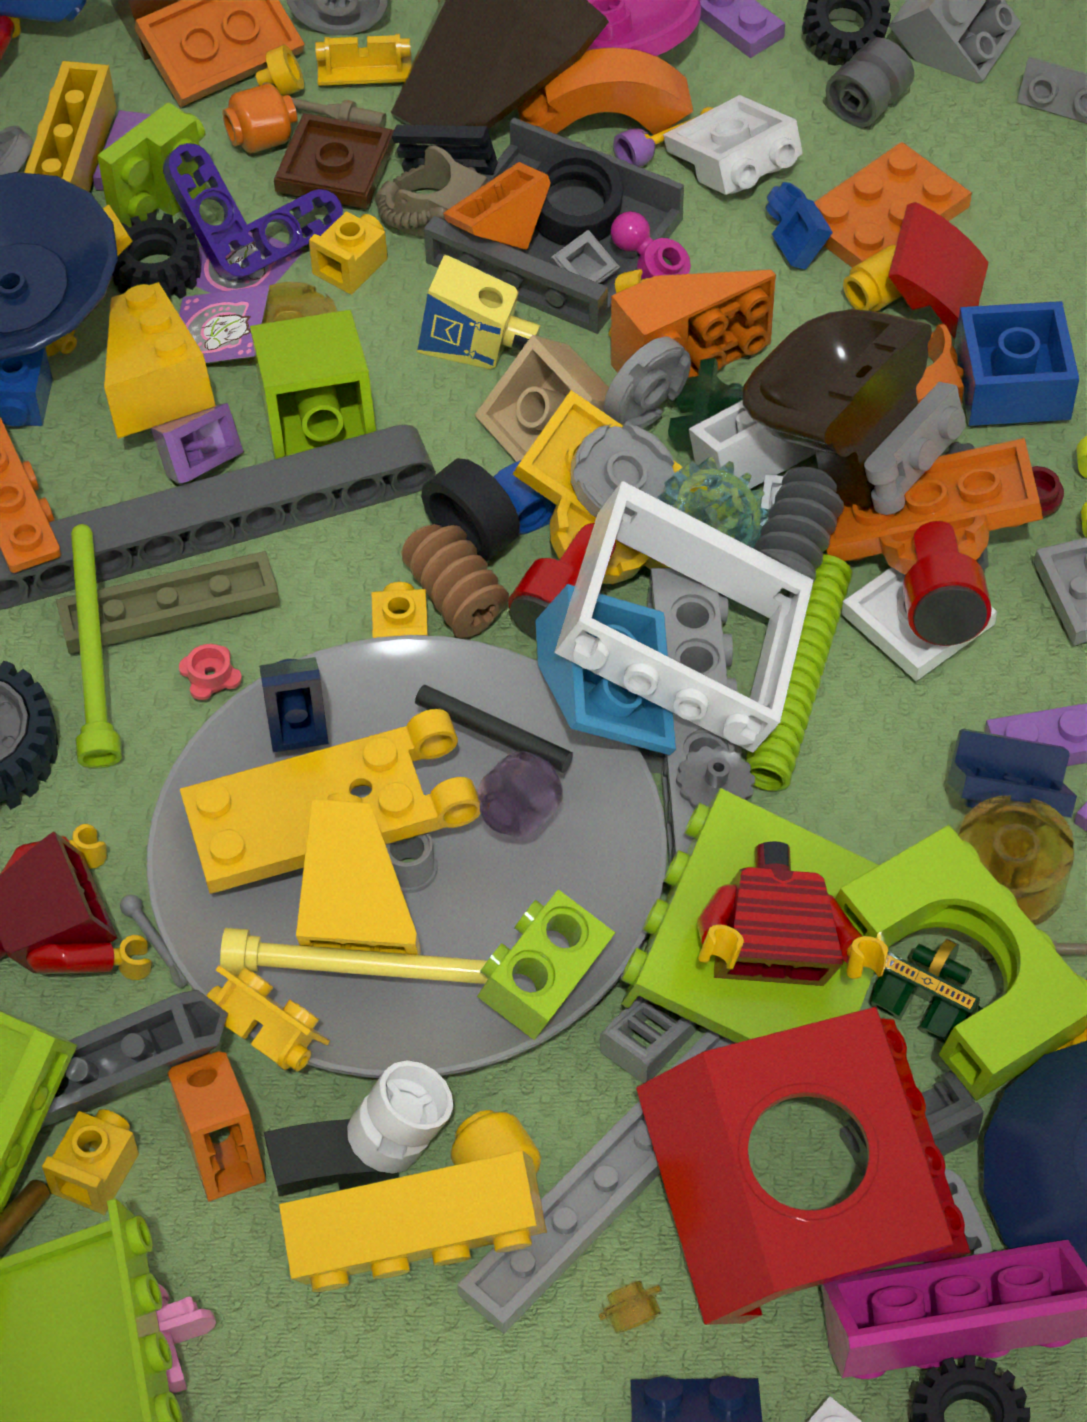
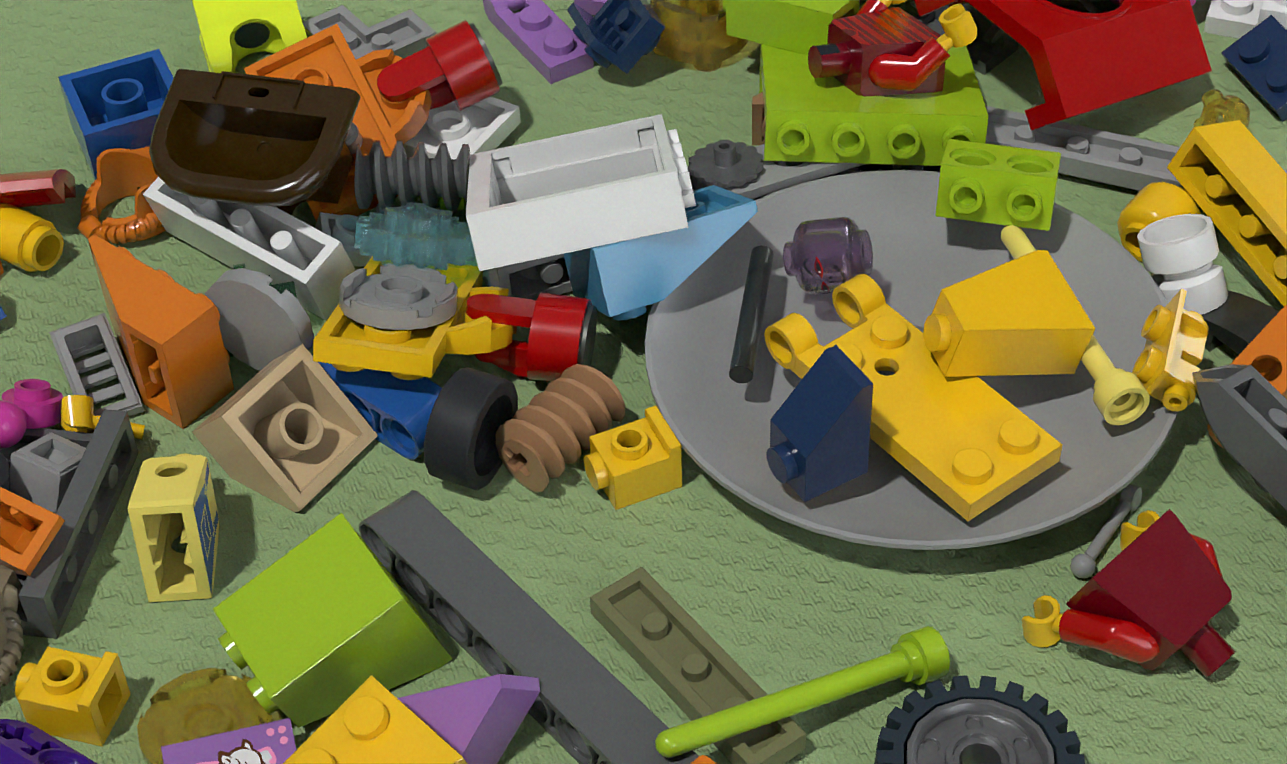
camera: 110 degrees left, 10 degrees down
(209, 659) = (765, 604): coral plate -> none

